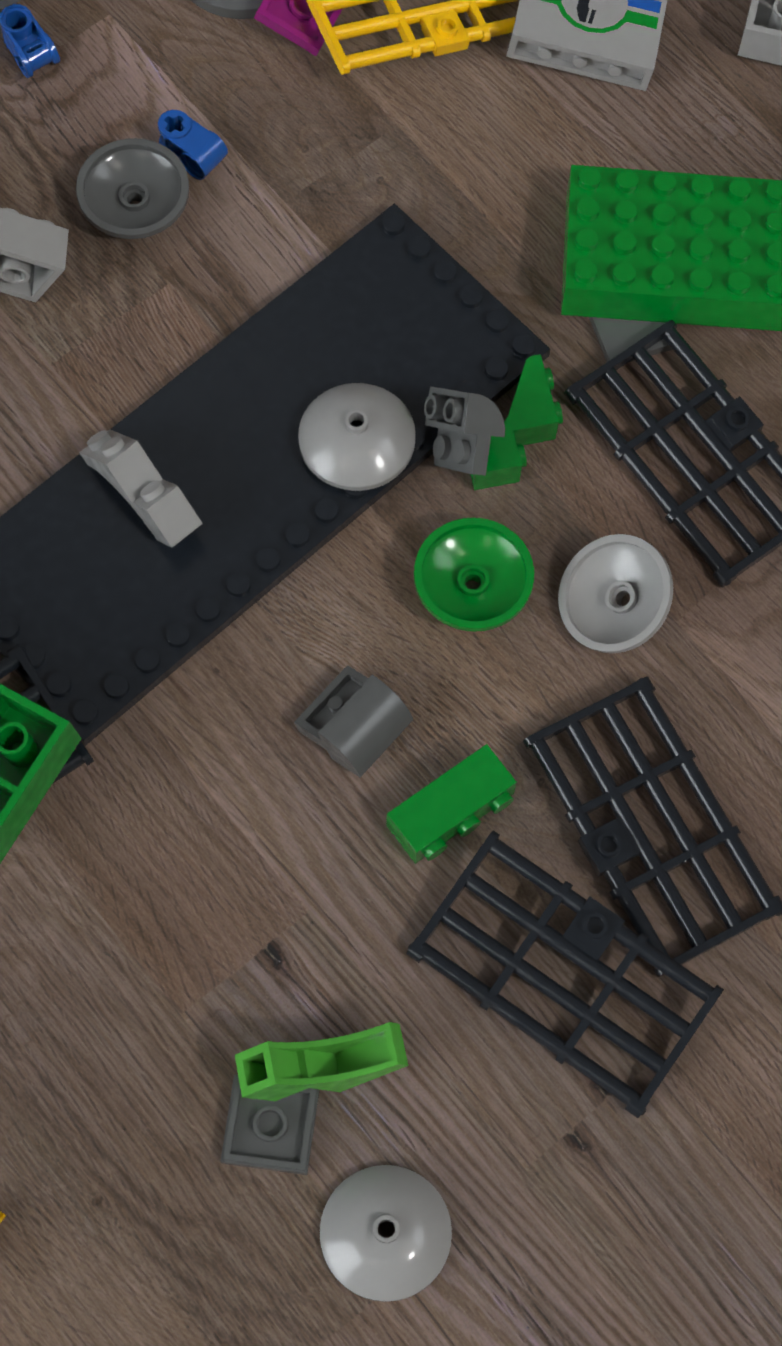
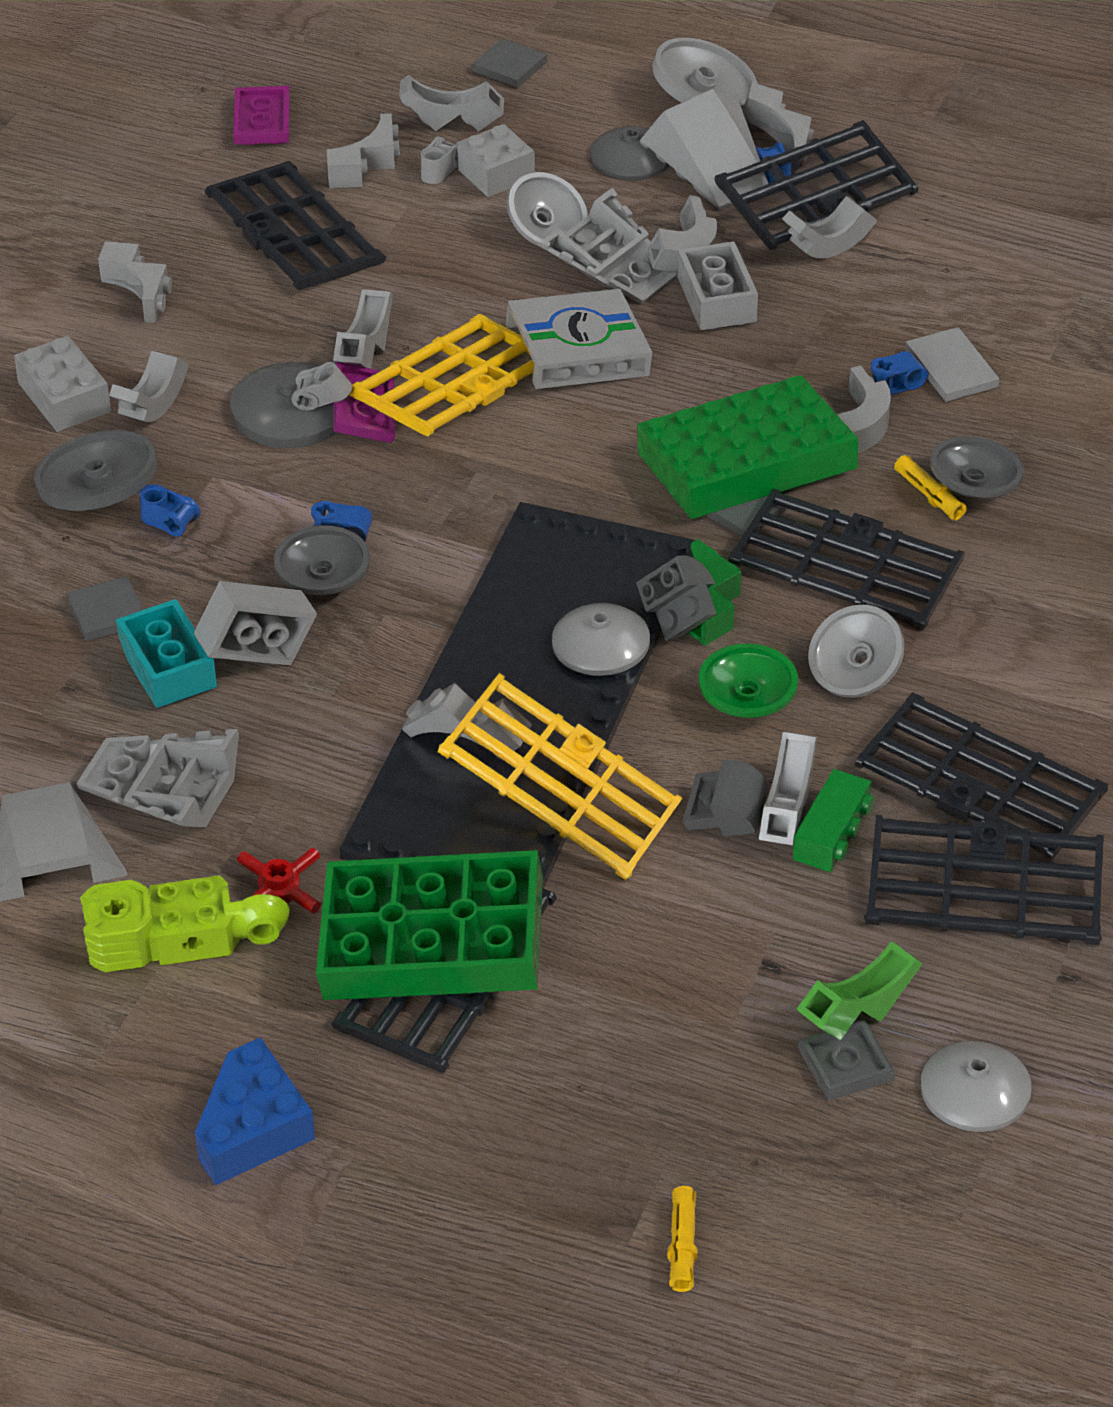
camera: 25 degrees left, 25 degrees down
(213, 592) = (575, 757): none -> yellow door
(420, 749) = (789, 788): none -> light grey arch

